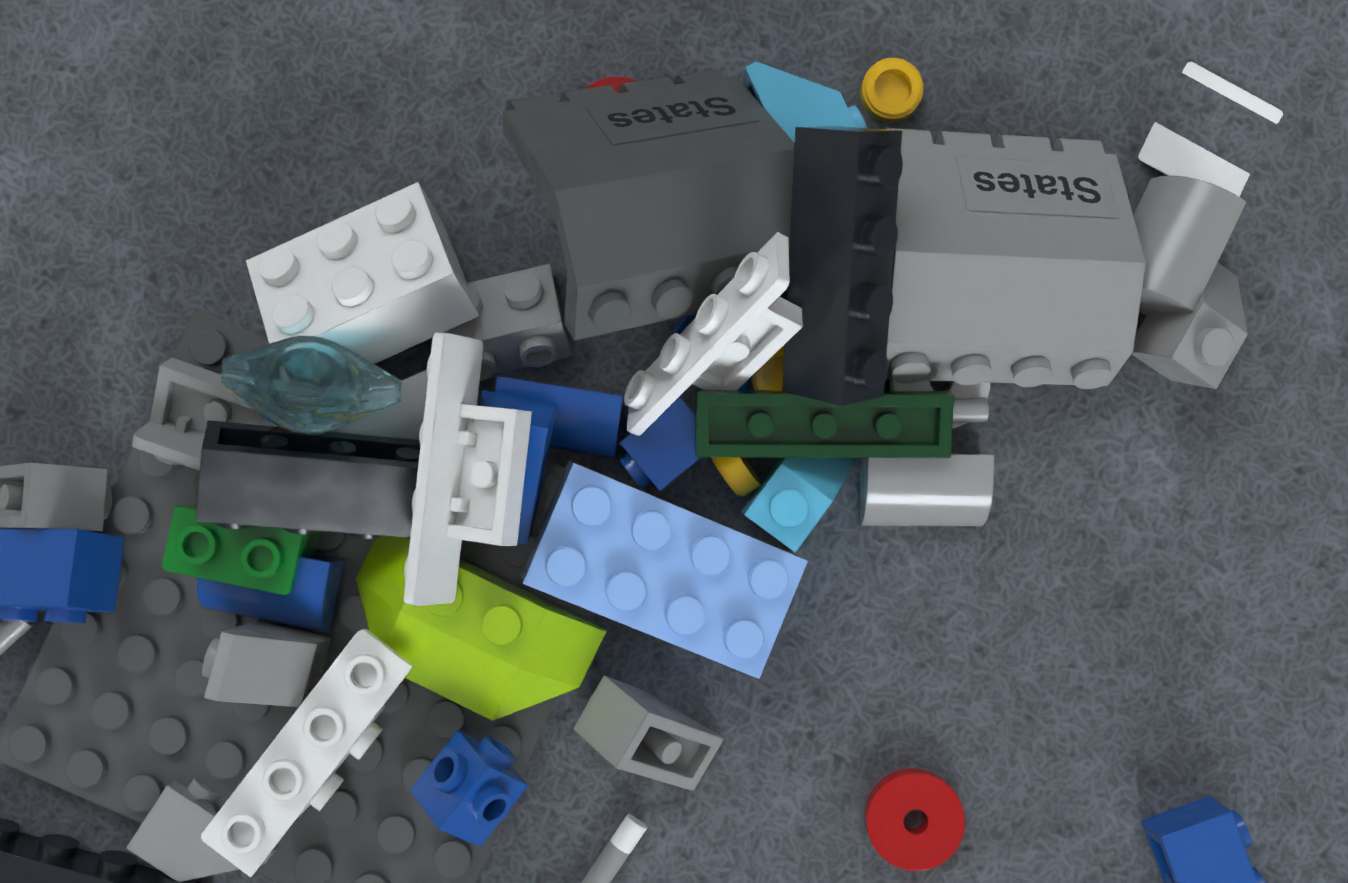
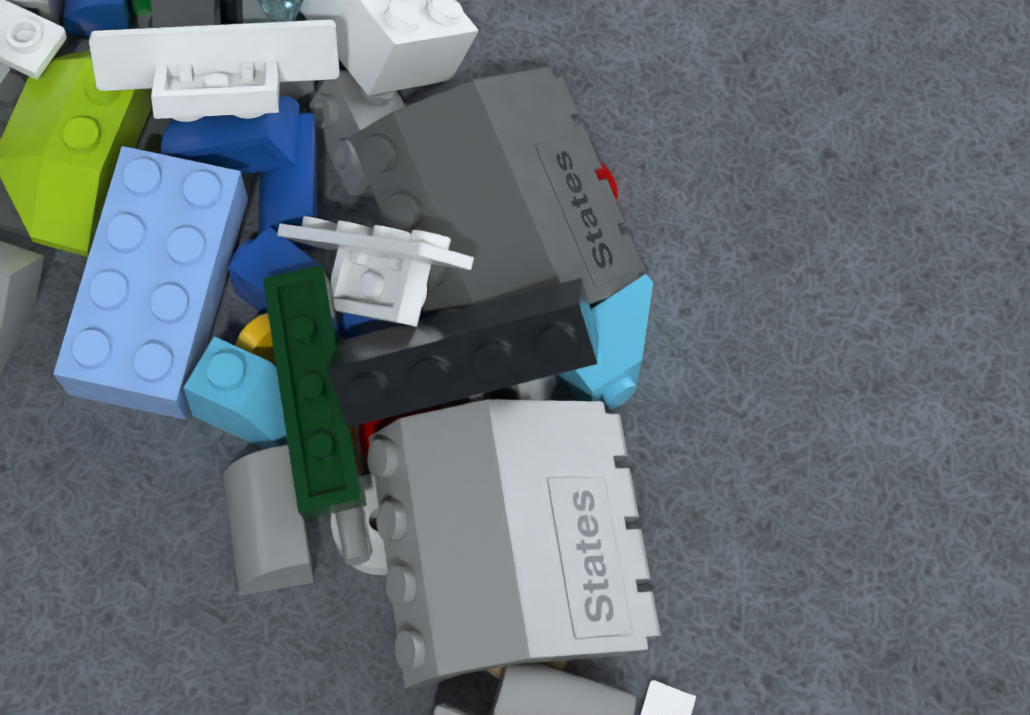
camera: 70 degrees right, 25 degrees down
(891, 90) = (664, 429): yellow tile -> none

